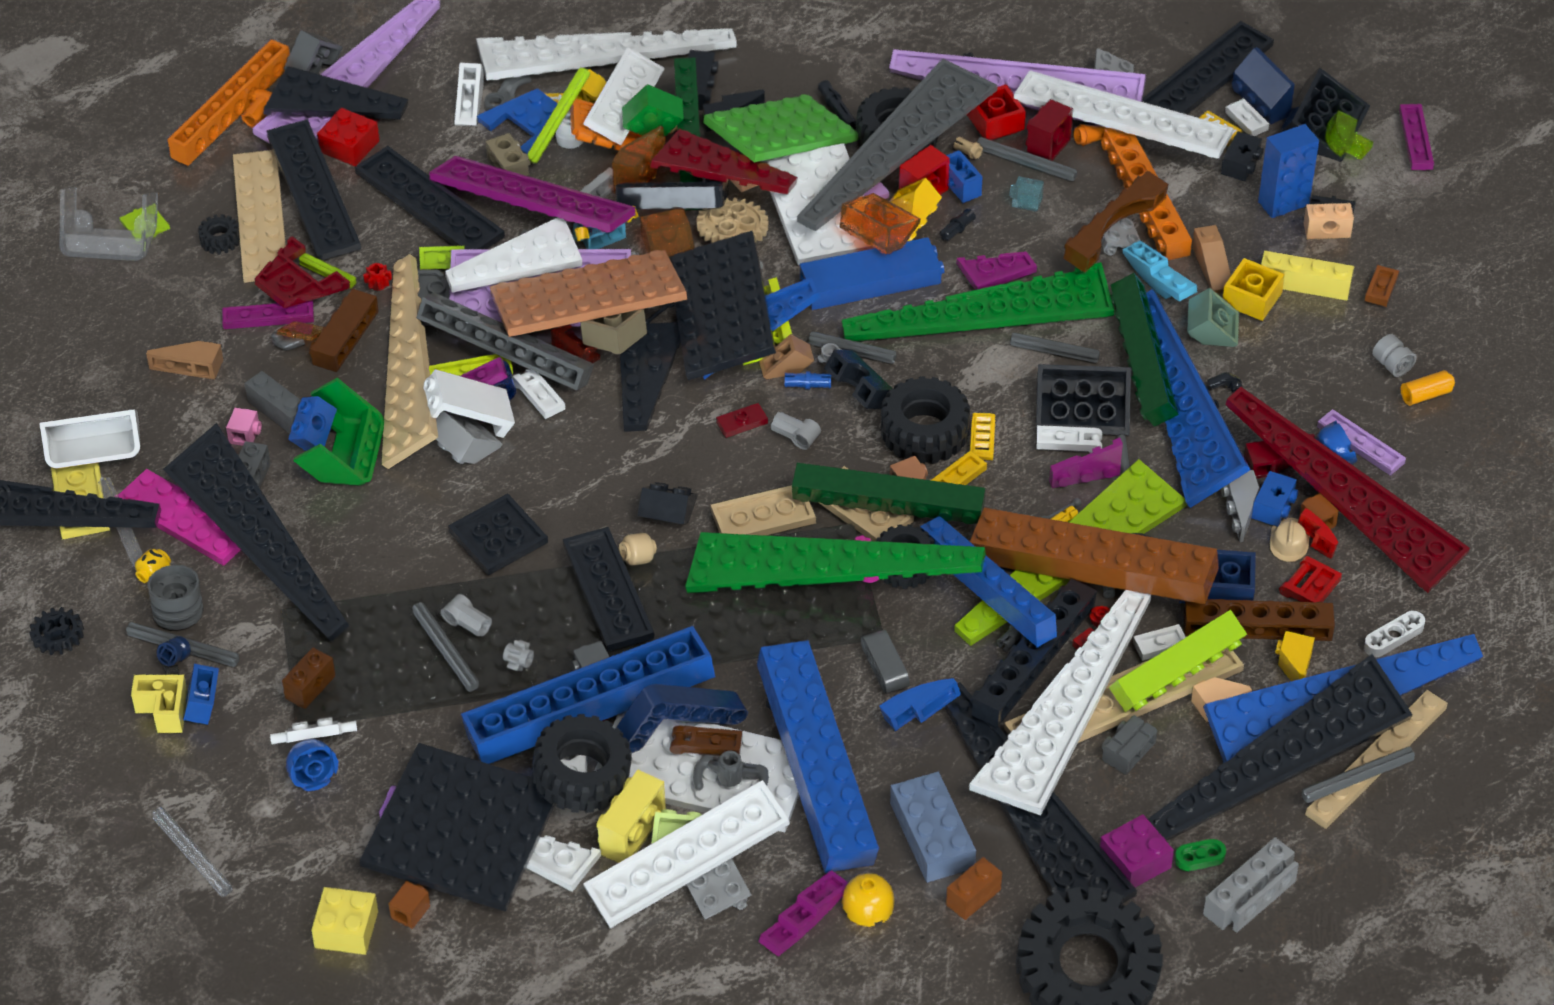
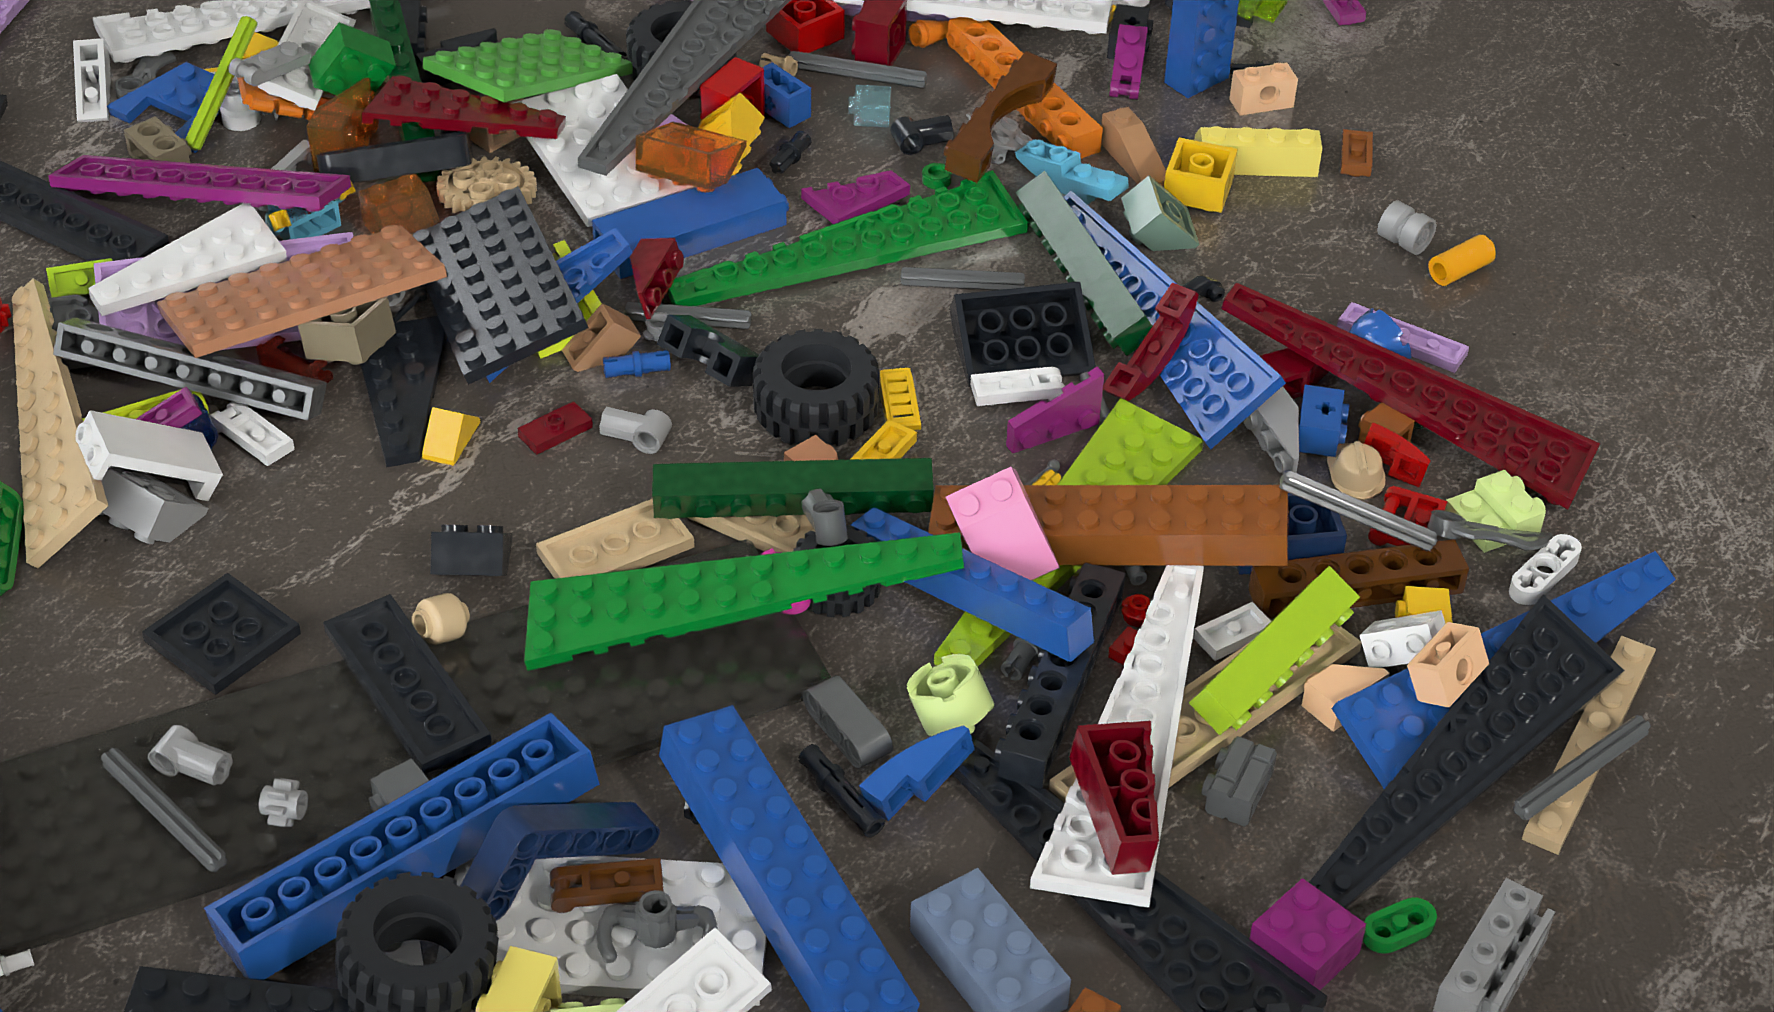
camera: 15 degrees left, 5 degrees down
(594, 107) = (270, 63): none -> light grey plate
(669, 414) = (448, 435): none -> yellow slope
(833, 311) = (654, 269): none -> dark red slope
(865, 698) = (831, 779): none -> black pin
(902, 520) = (826, 517): none -> dark grey piece
(954, 655) = (949, 694): none -> yellowish green brick
(1017, 546) = (1003, 525): none -> bright pink slope
(1039, 733) = (1118, 789): none -> dark red wedge
(1052, 223) = (914, 135): none -> black piece
(1057, 260) = (935, 176): none -> green tile
(1173, 427) = (1158, 346): none -> dark red slope
(1231, 183) = (1128, 61): none -> magenta plate
(1263, 574) = (1357, 510): none -> axle
(1270, 668) = (1400, 638): none -> white brick
(1286, 691) = (1448, 664): none -> light nougat brick
(1335, 593) = (1455, 526): none -> dark grey piece
(1376, 586) = (1501, 503): none -> yellowish green plate

